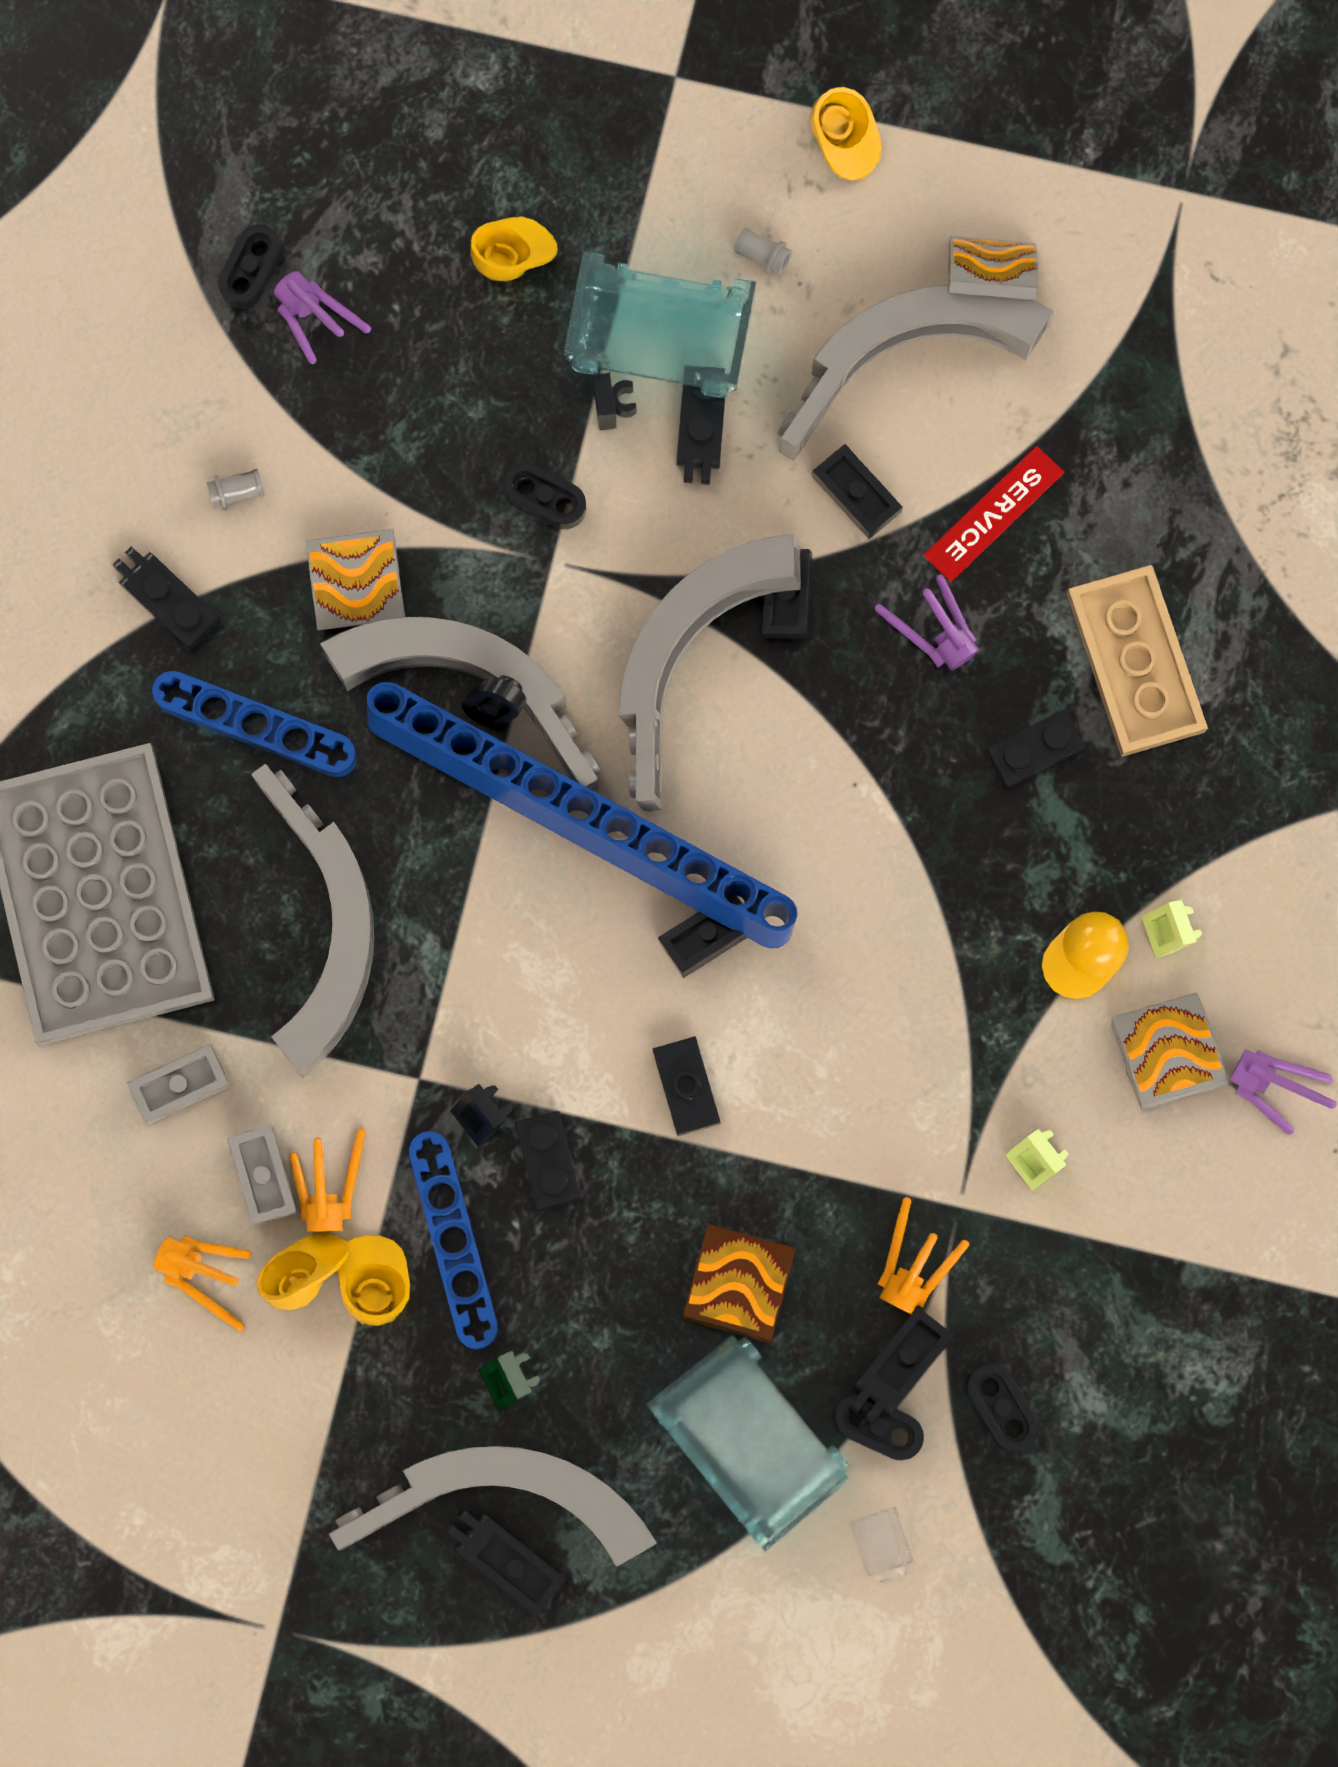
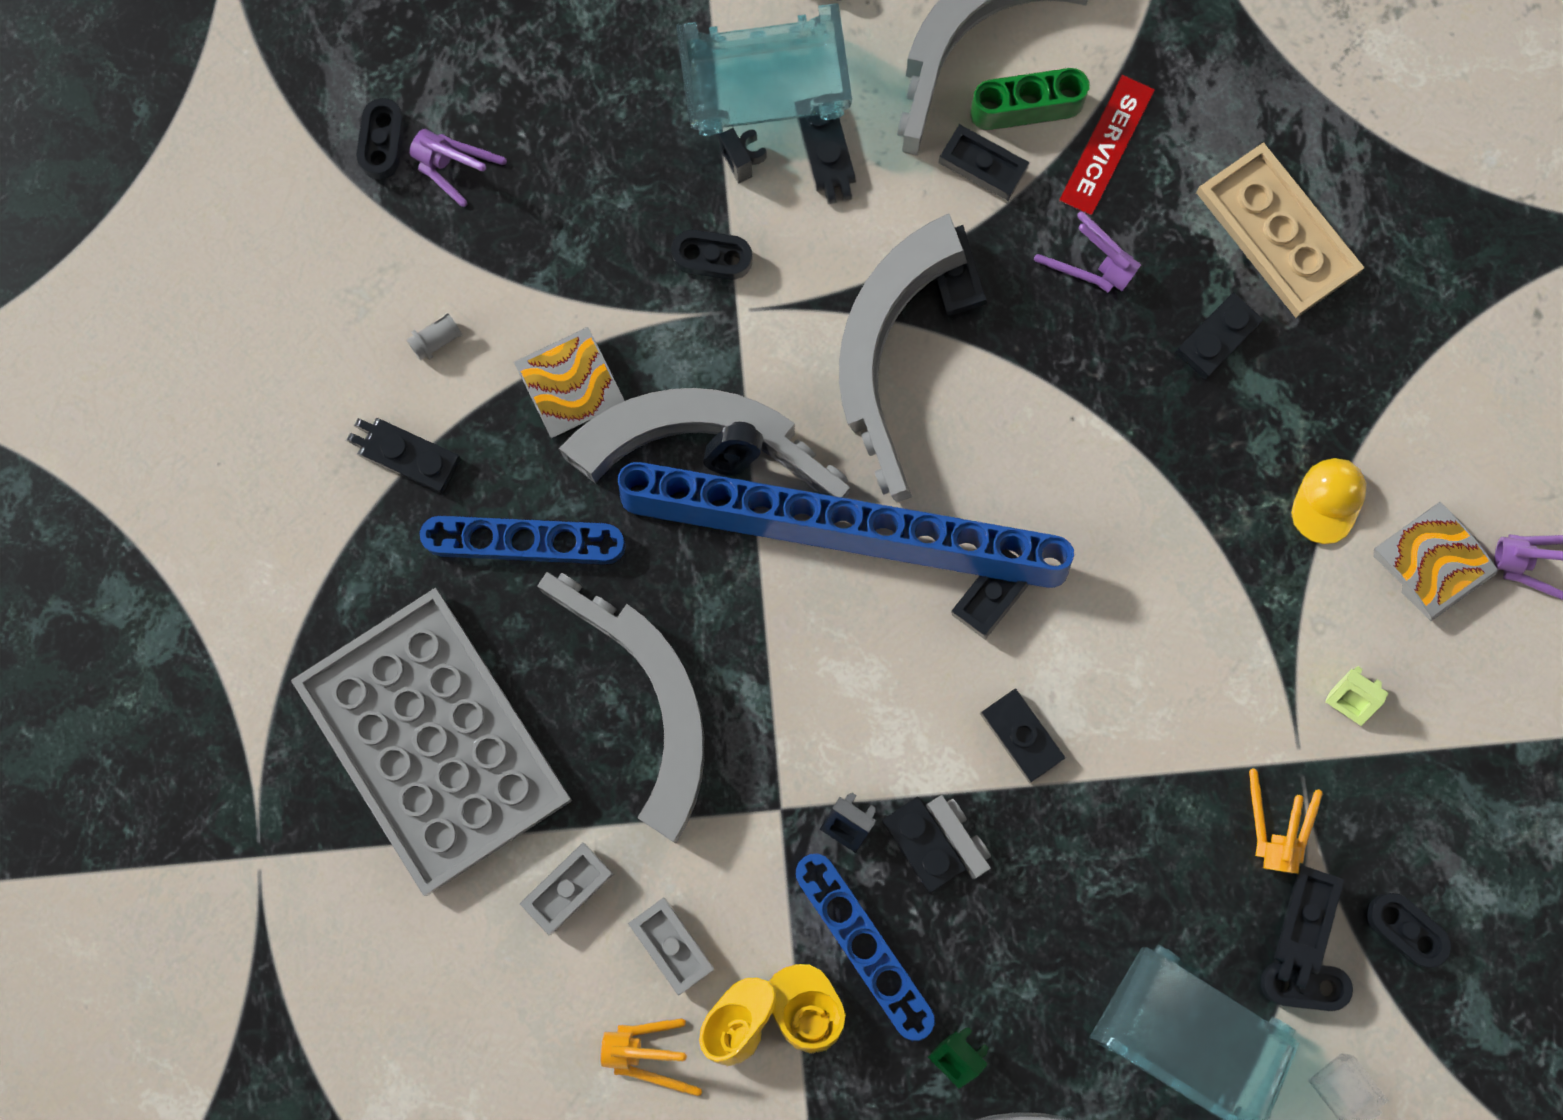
camera: 15 degrees left, 0 degrees up
(323, 1210) = (738, 960): light orange plant -> none
(510, 247) = (605, 49): yellow cap -> none
(591, 1181) = (969, 850): none -> light grey plate
(739, 1284) = (1134, 898): slope -> none
(947, 431) = (1043, 86): none -> green beam
(1170, 928) = (1396, 453): yellowish green tile -> none

